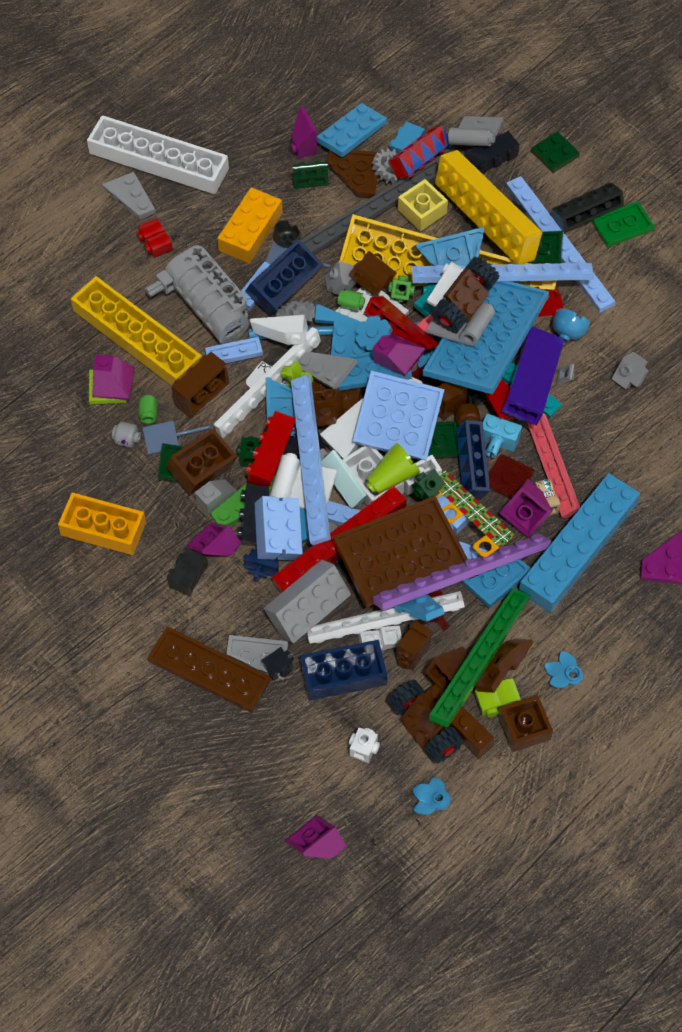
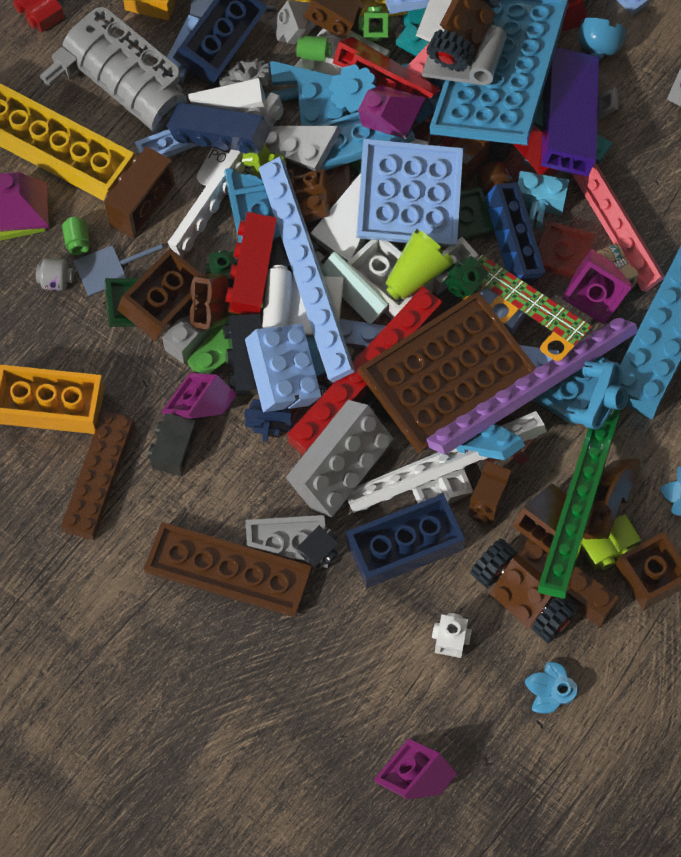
camera: 10 degrees left, 5 degrees up
(127, 585) = (97, 475): none -> reddish brown piece
(233, 473) = (209, 303): none -> reddish brown brick
(267, 347) = (218, 128): none -> dark blue brick
(515, 588) = (606, 396): none -> dark azure connector

